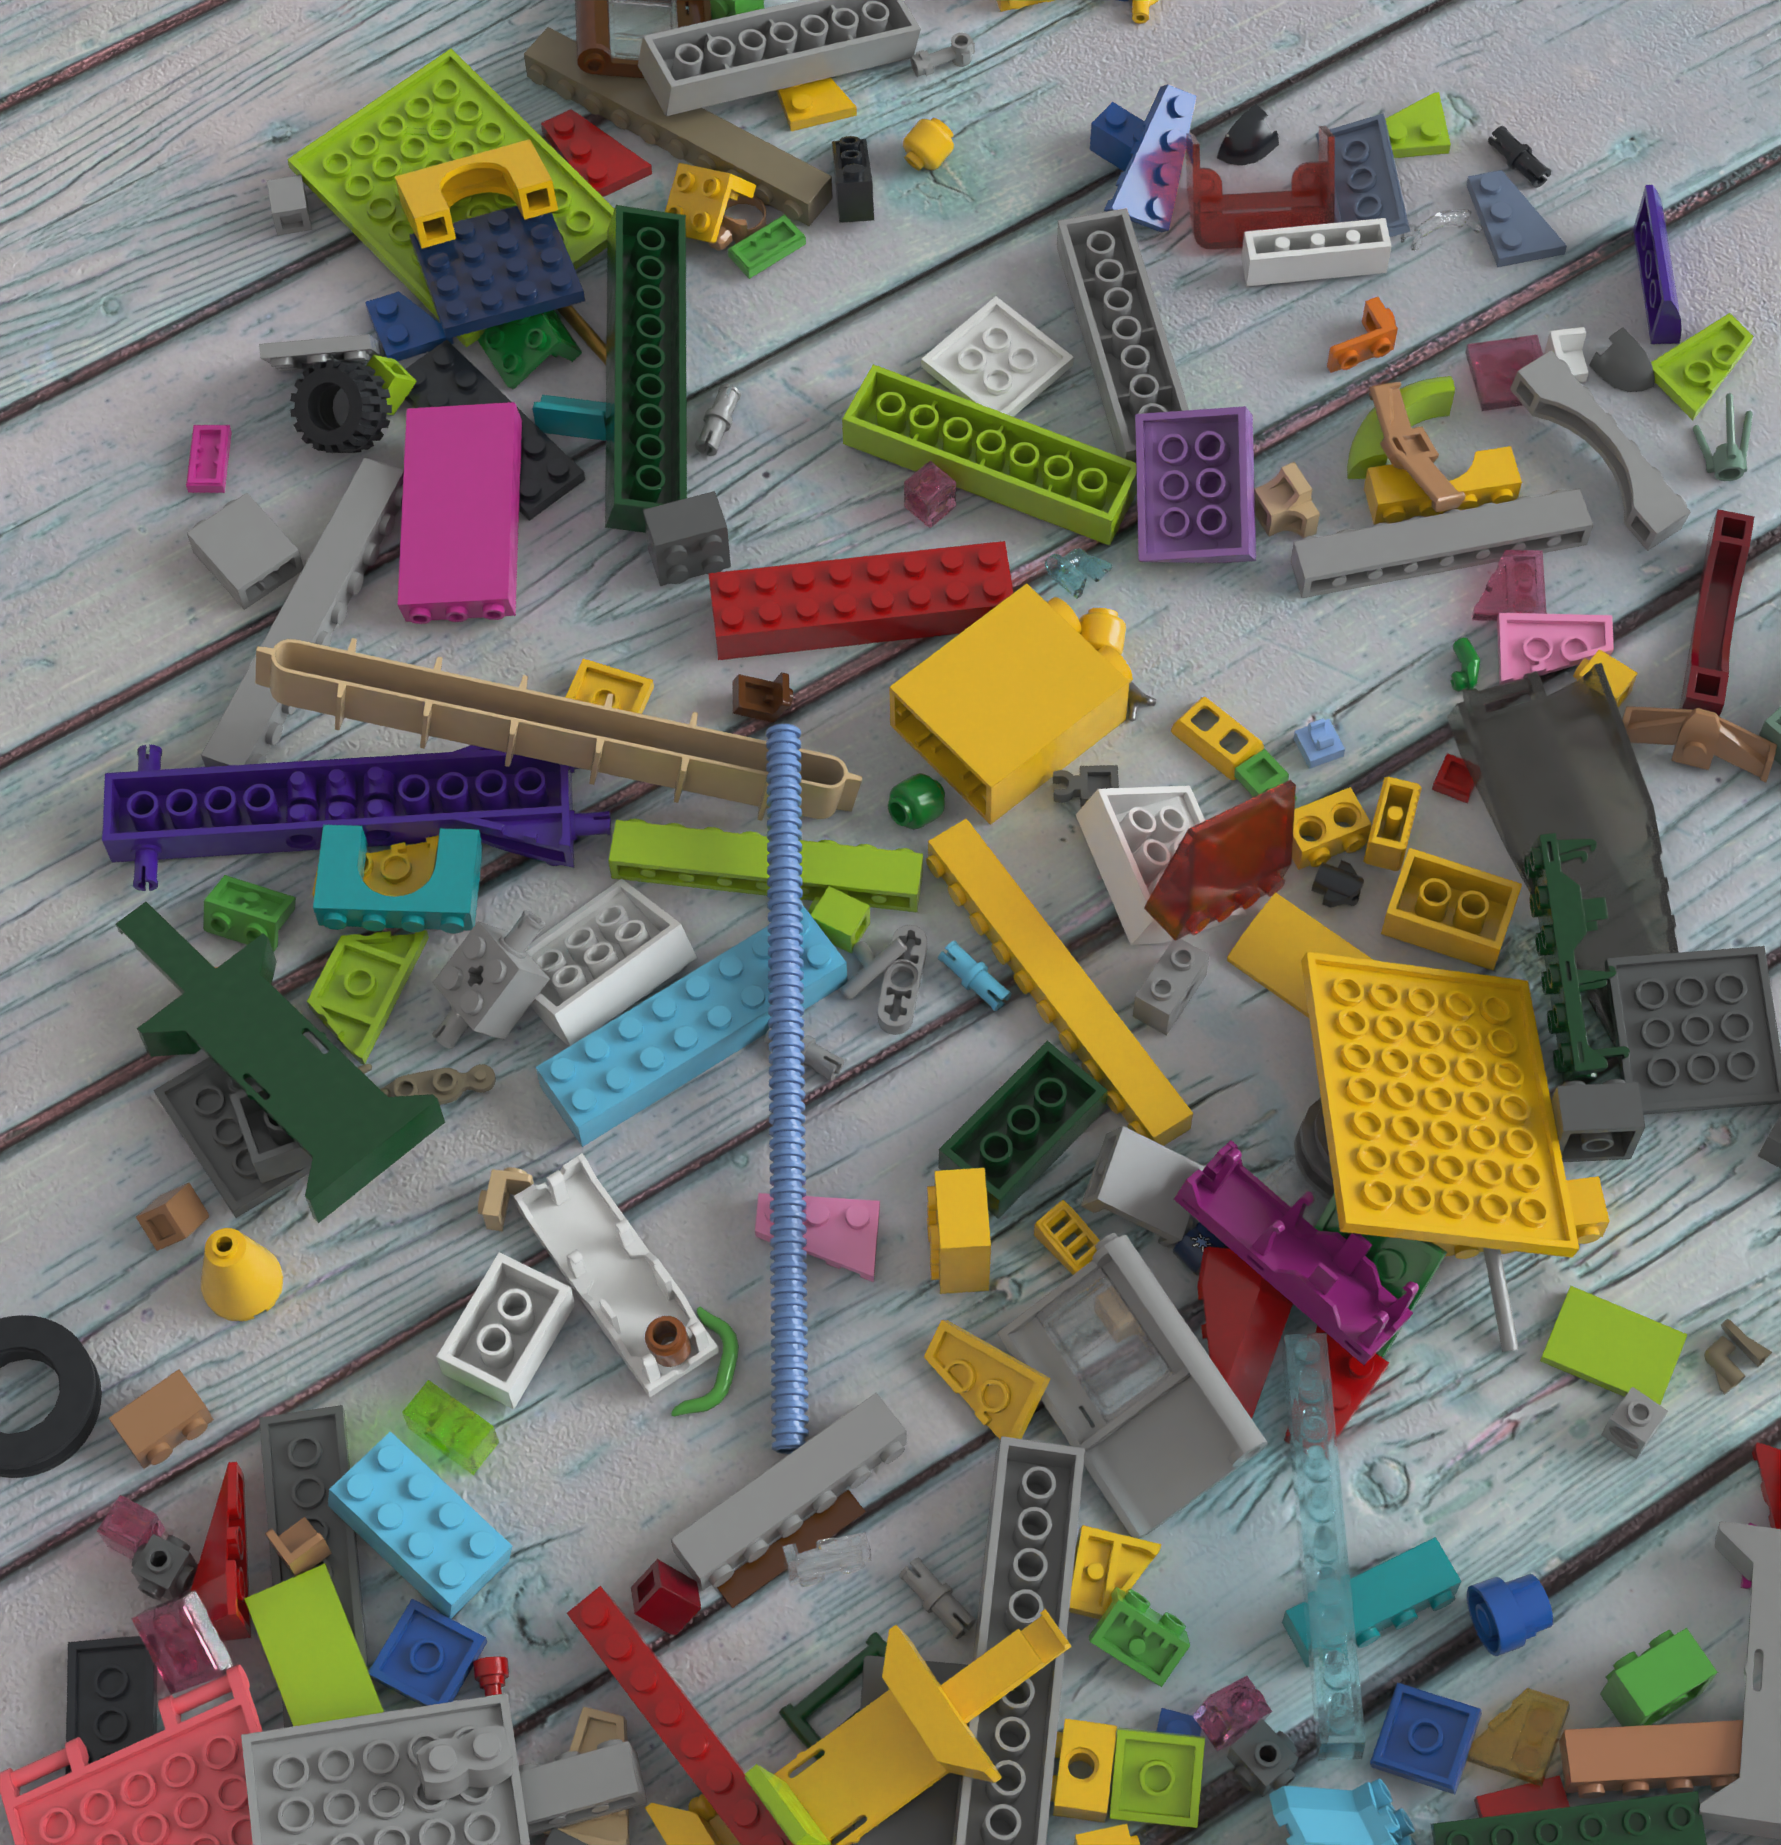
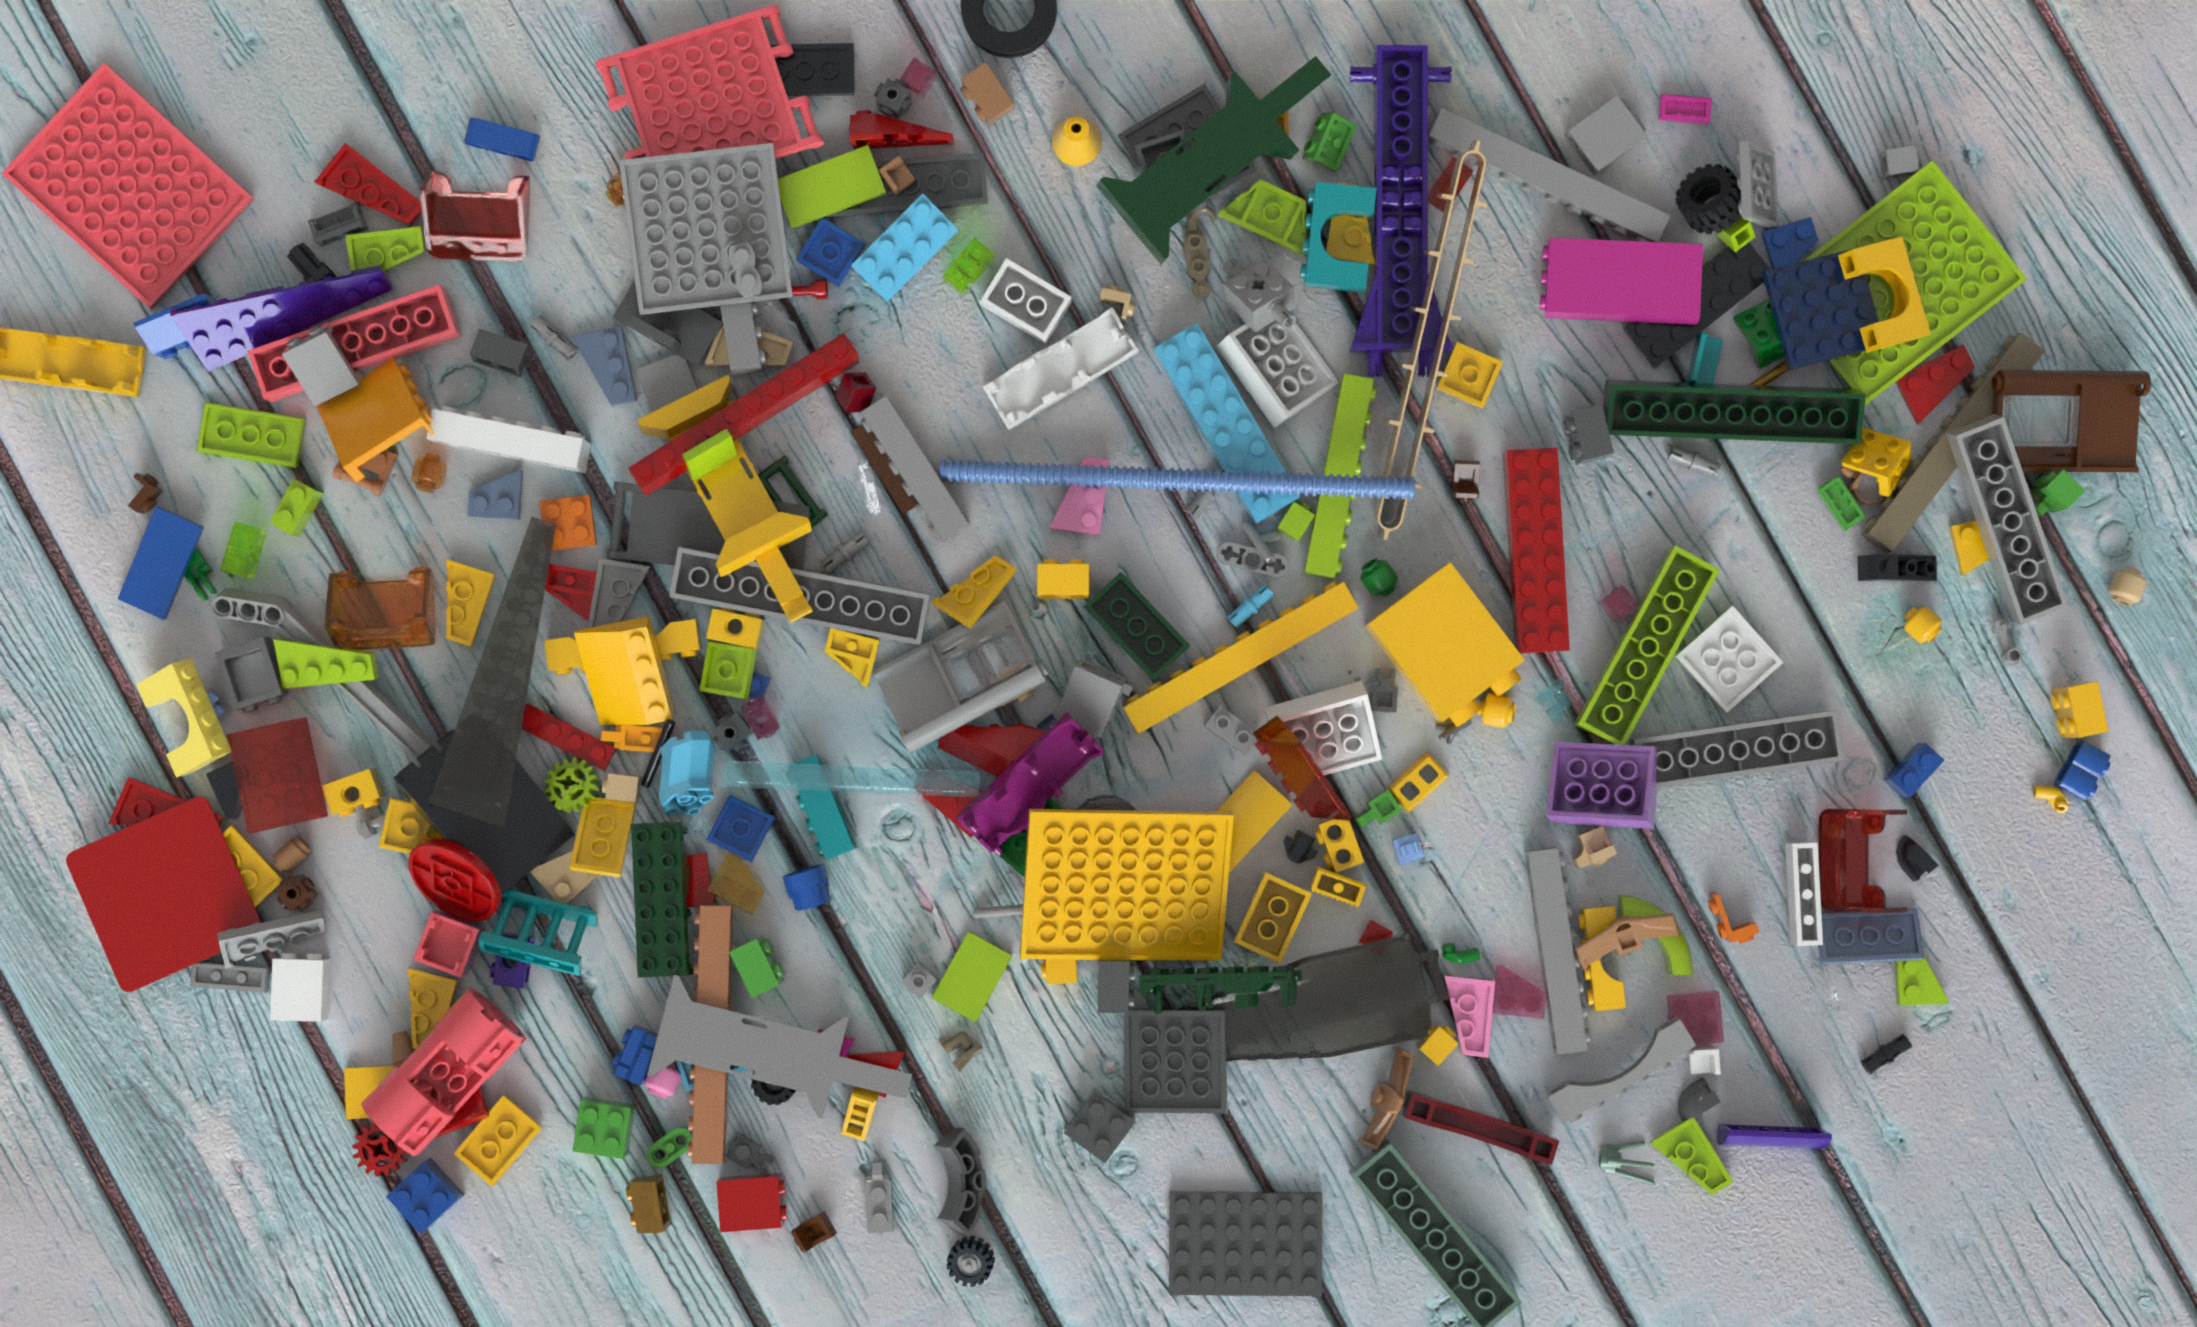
camera: 95 degrees right, 25 degrees up
(172, 1216) = (1119, 97): medium nougat panel -> none
(183, 1642) = (842, 109): clear pink plate -> none
(309, 743) = (1443, 183): none -> clear red tile
(663, 1331) = (1005, 391): dark orange brick -> none
(725, 1370) = (997, 434): bright green animal -> none
(1053, 1242) = (1055, 647): yellow slope -> none
(1141, 1636) = (810, 669): bright green bracket -> none
(1156, 163) = (1875, 783): wing -> none
(1511, 222) = (1829, 1039): sand blue wing -> none

